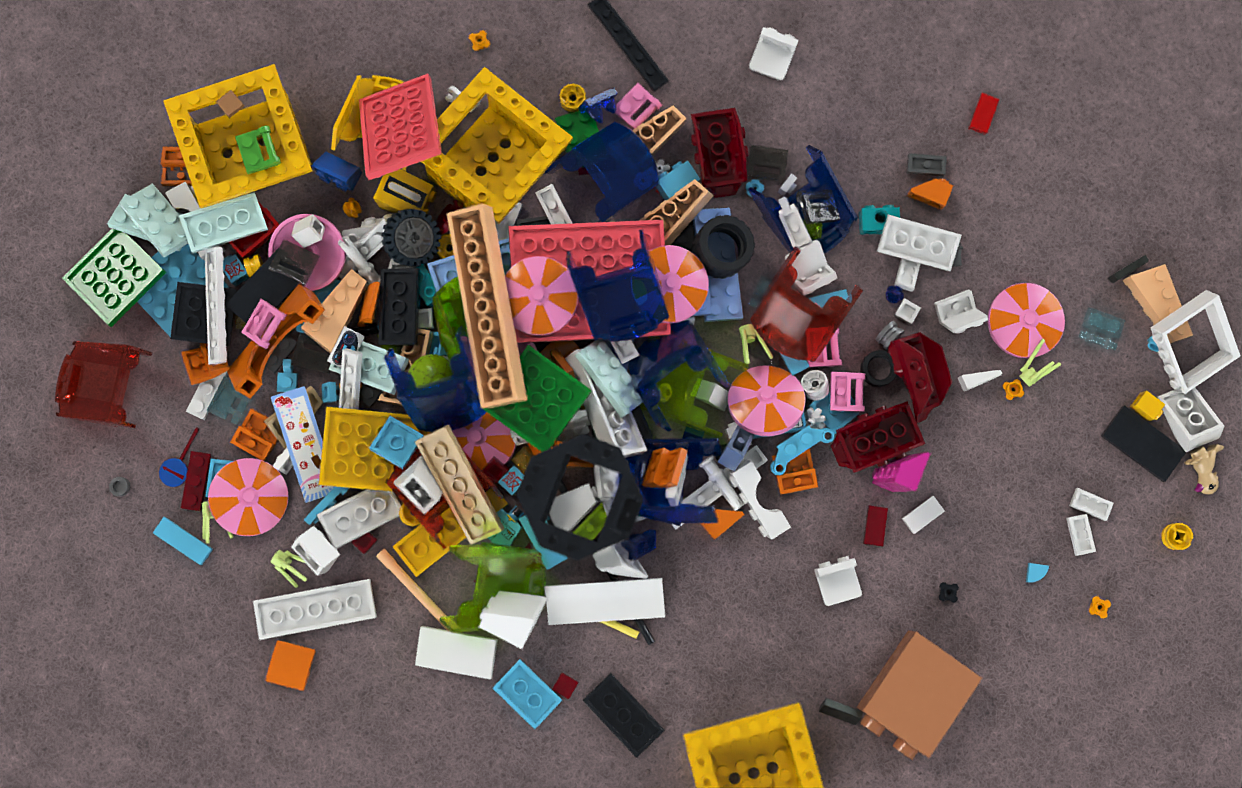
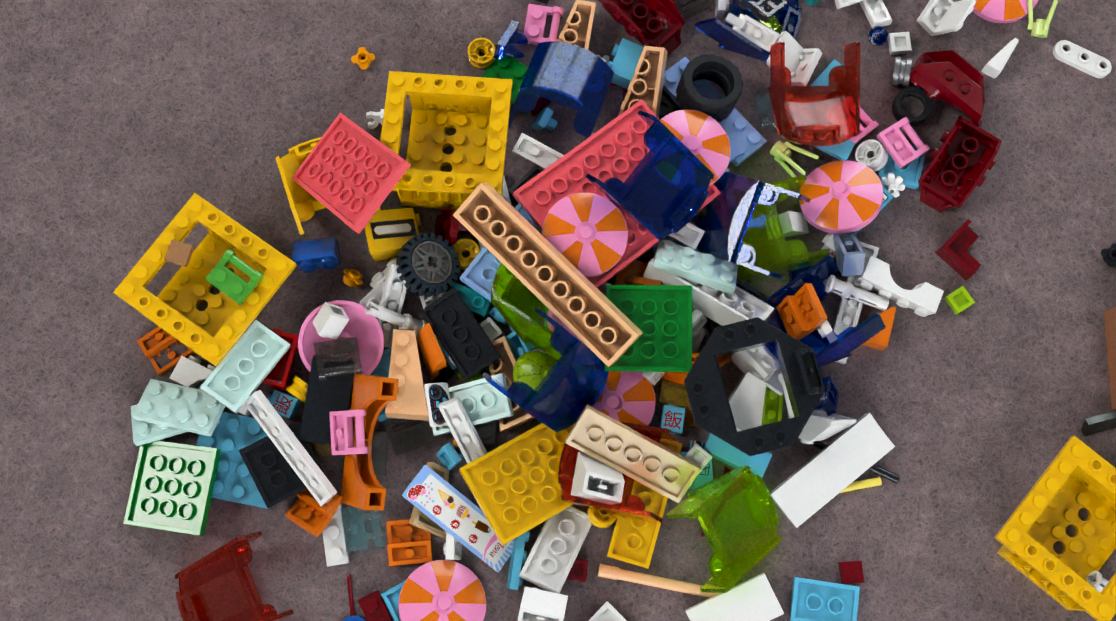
camera: 30 degrees left, 5 degrees down
(287, 380) = (402, 472): medium azure plate -> none
(395, 442) = (546, 456): medium azure plate -> none
(495, 470) = (651, 418): dark red tile -> none
(509, 521) = (699, 456): none -> white tile
(512, 616) = (765, 539): white slope -> none
(582, 184) = (544, 120): none -> medium azure tile
(623, 715) = (921, 561): black tile -> none
(755, 183) = (689, 27): medium azure plate -> none
(798, 444) = (896, 215): medium azure plate -> none
(798, 474) = (907, 242): orange slope -> none
(800, 543) = (959, 300): none -> lime plate
(826, 503) = (955, 252): none -> dark red panel
(838, 581) = (1015, 310): white bracket -> none
(875, 525) = (1009, 241): dark red tile -> none
(901, 474) = (1008, 176): dark pink slope -> none
(923, 514) = (1041, 204): white tile -> none
(1016, 384) = (1034, 43): light orange plate -> none
(1038, 418) = (1073, 58): none -> white plate

